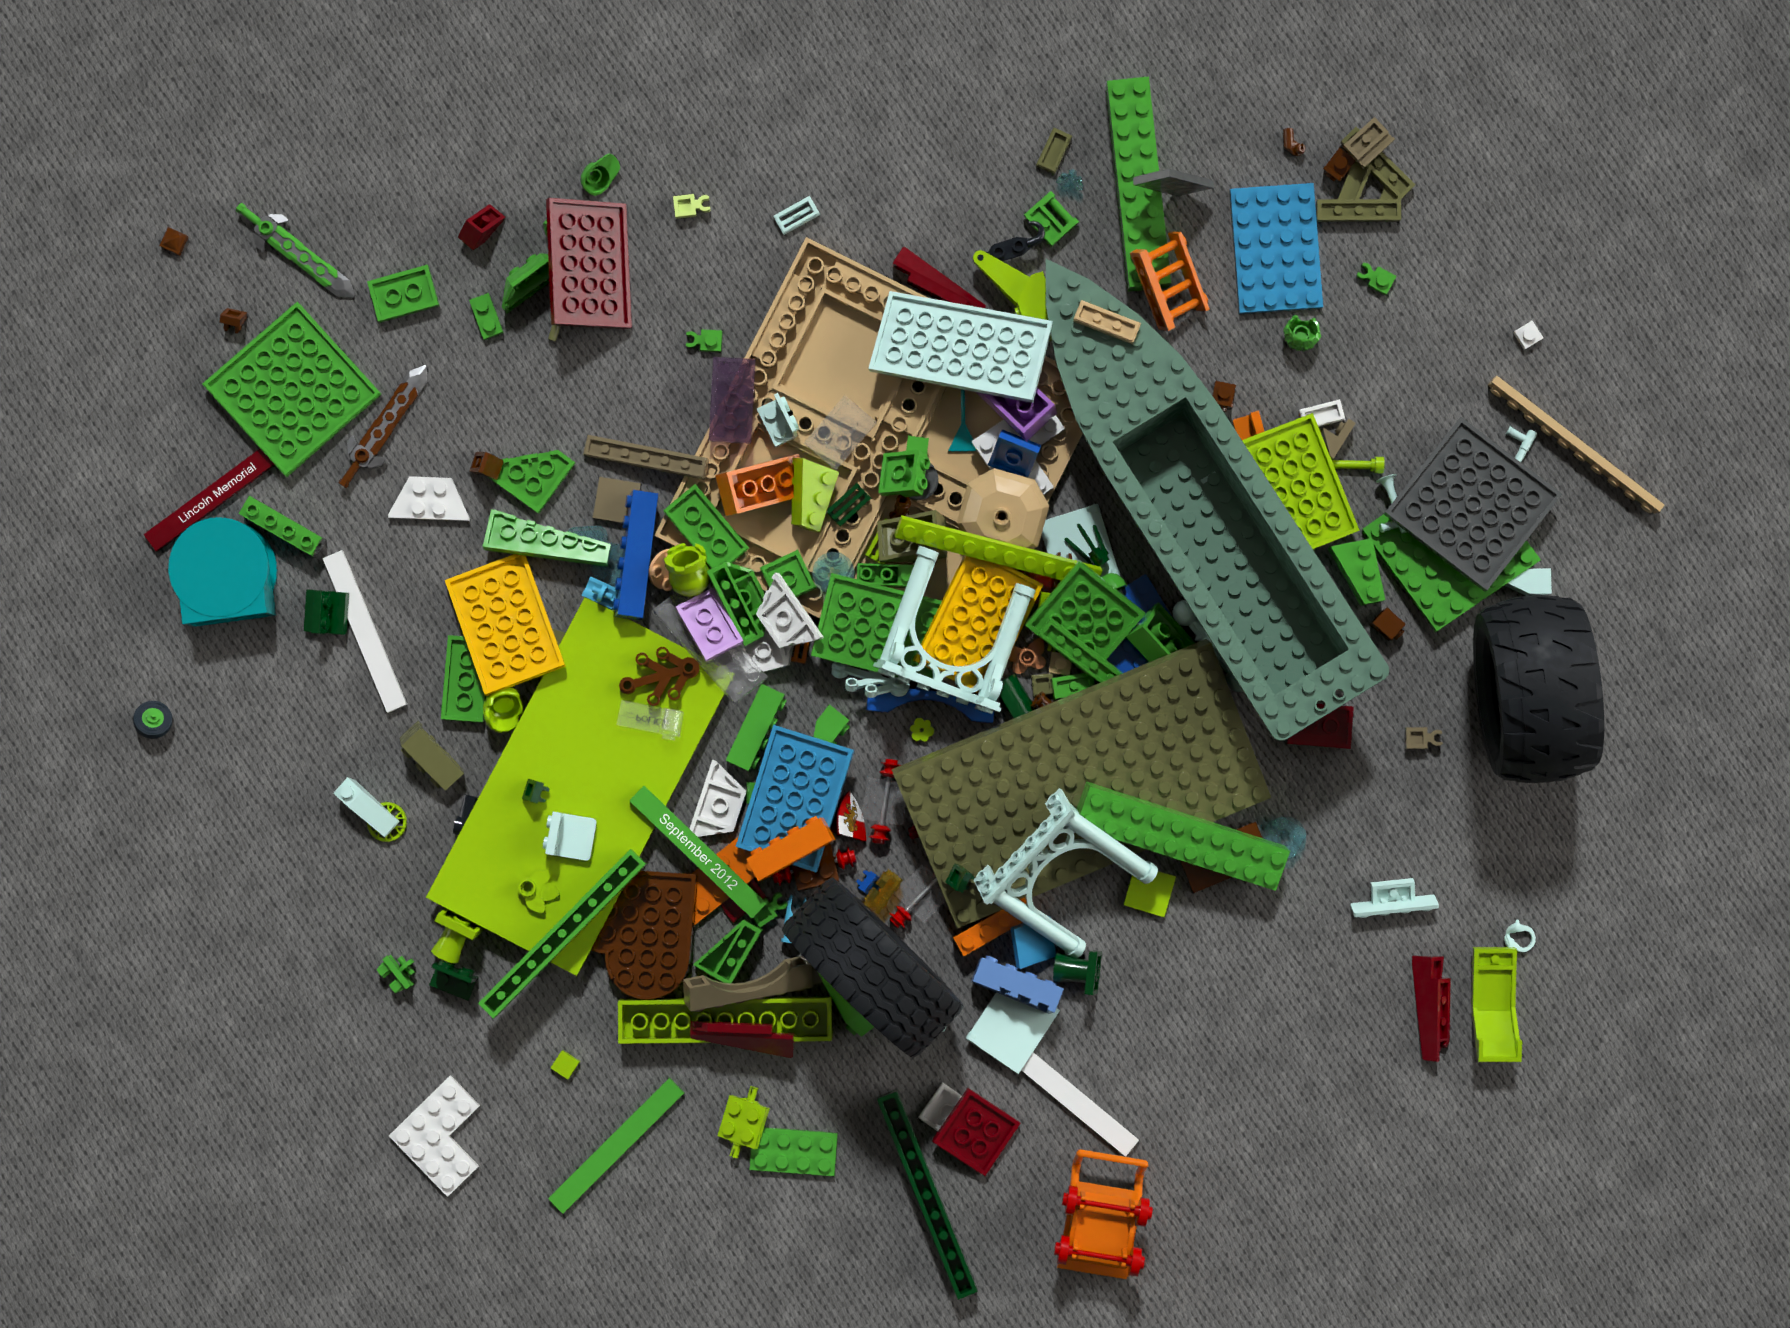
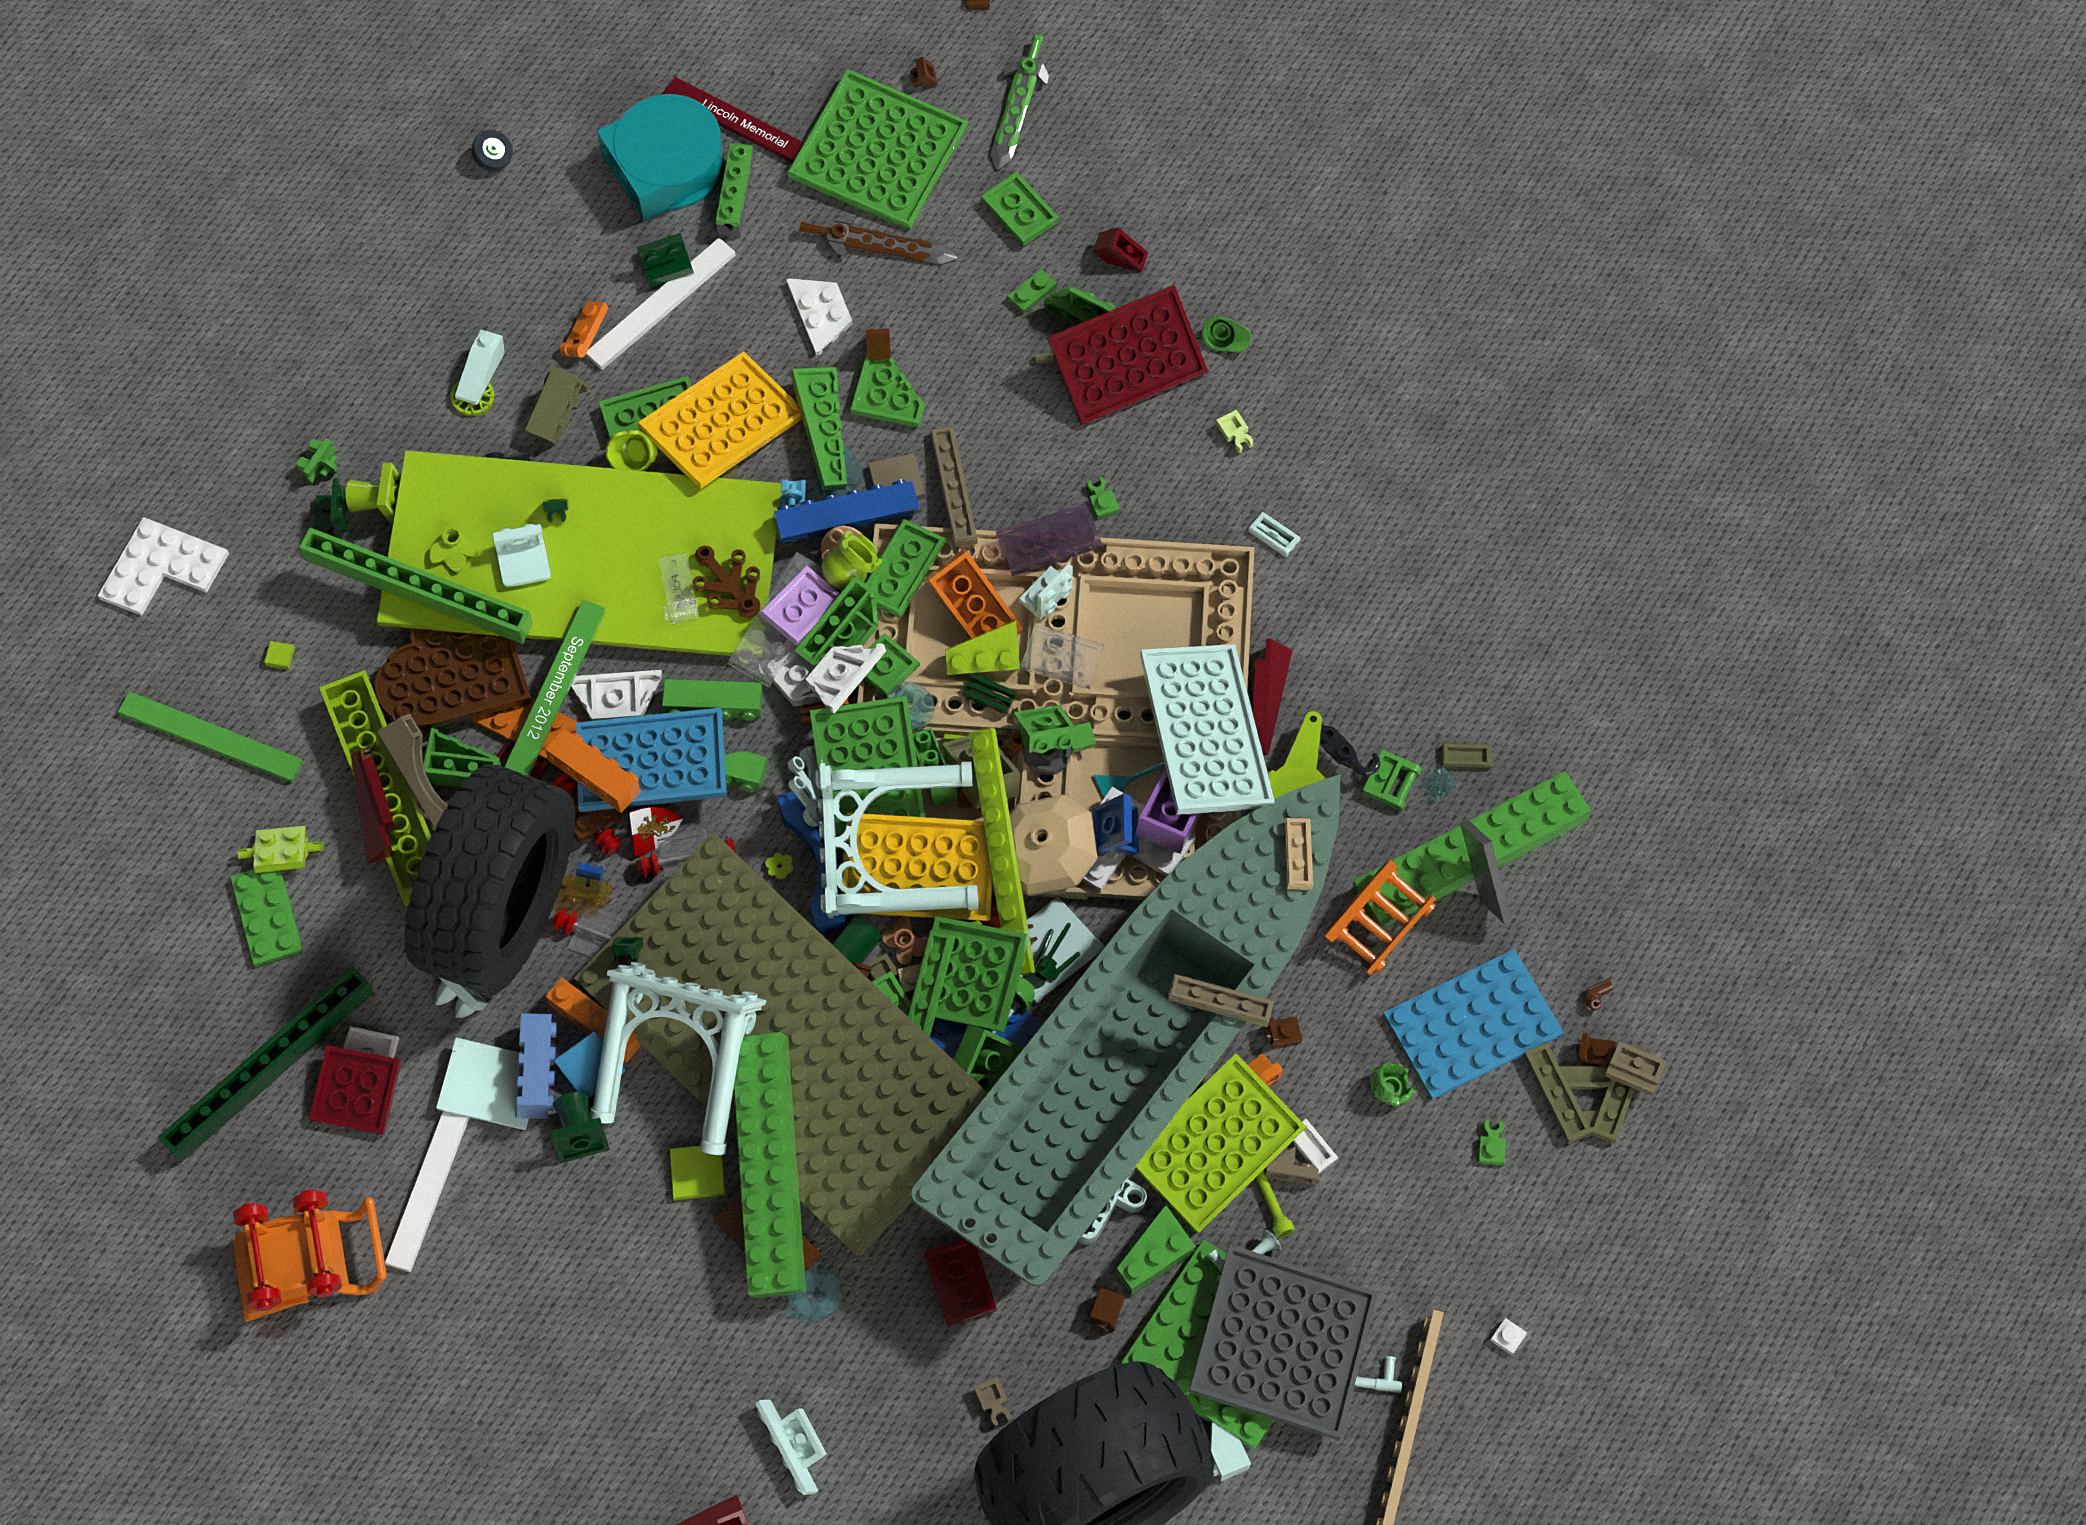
camera: 60 degrees right, 20 degrees down
(364, 705) = (584, 329): none -> orange plate
(1210, 436) = (1221, 1000): none -> dark tan tile

